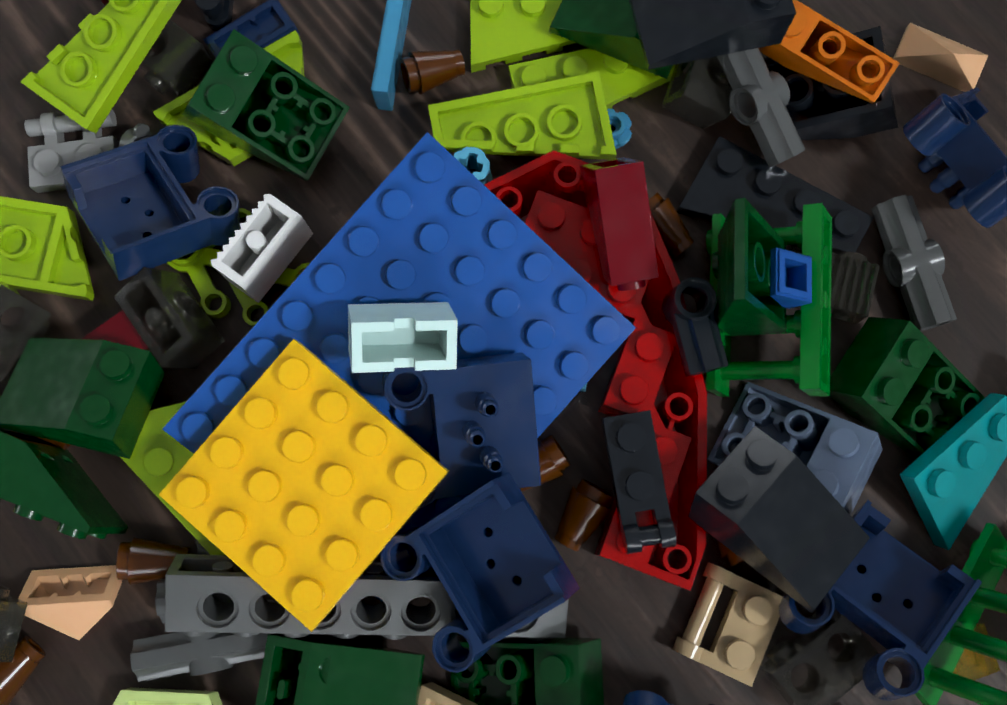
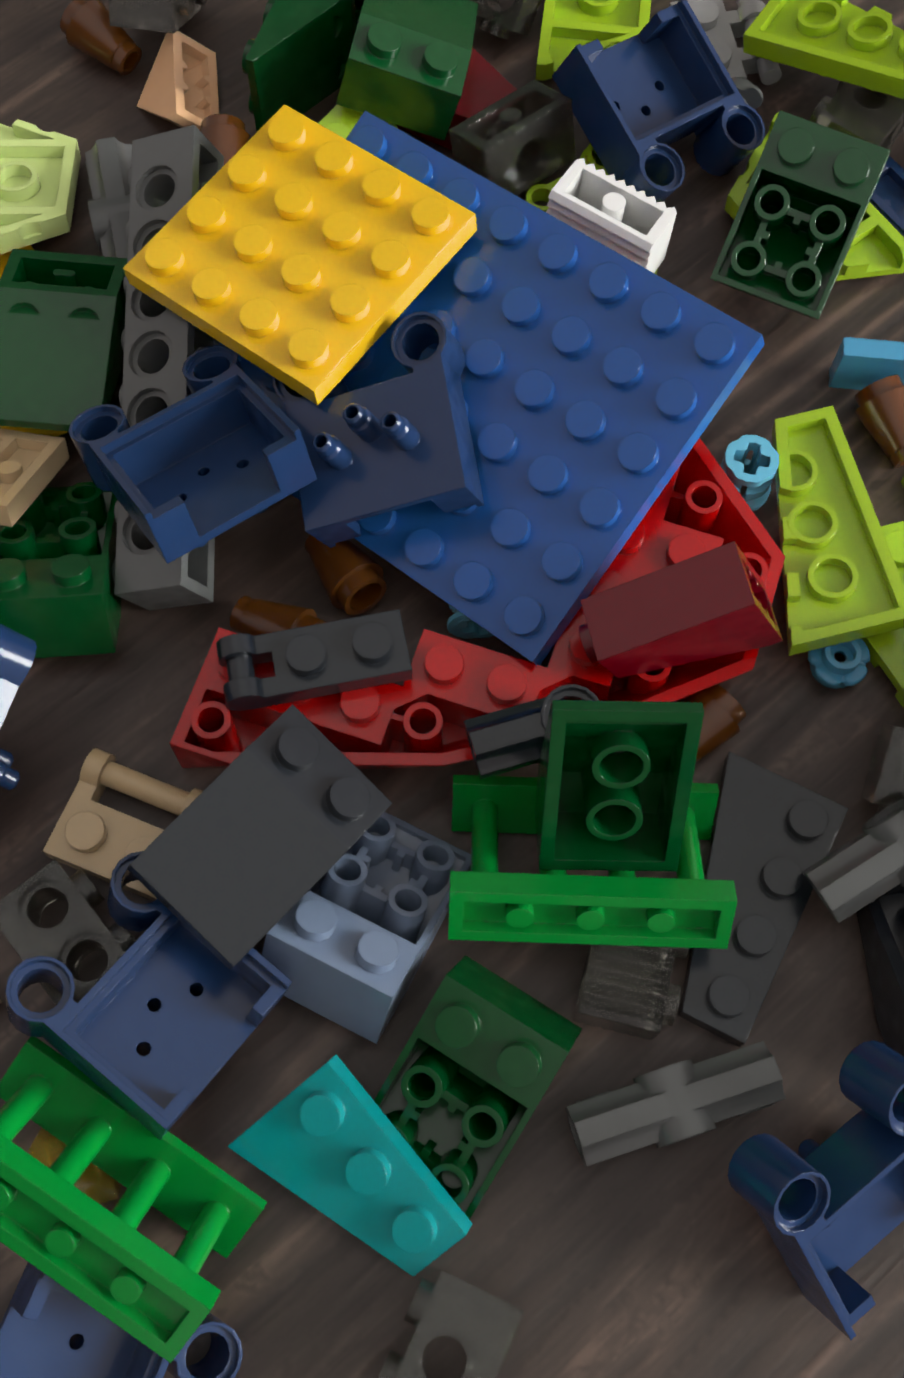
camera: 85 degrees right, 10 degrees down
(402, 336) = (484, 324): light aqua brick -> none
(791, 278) = (613, 845): blue slope -> none

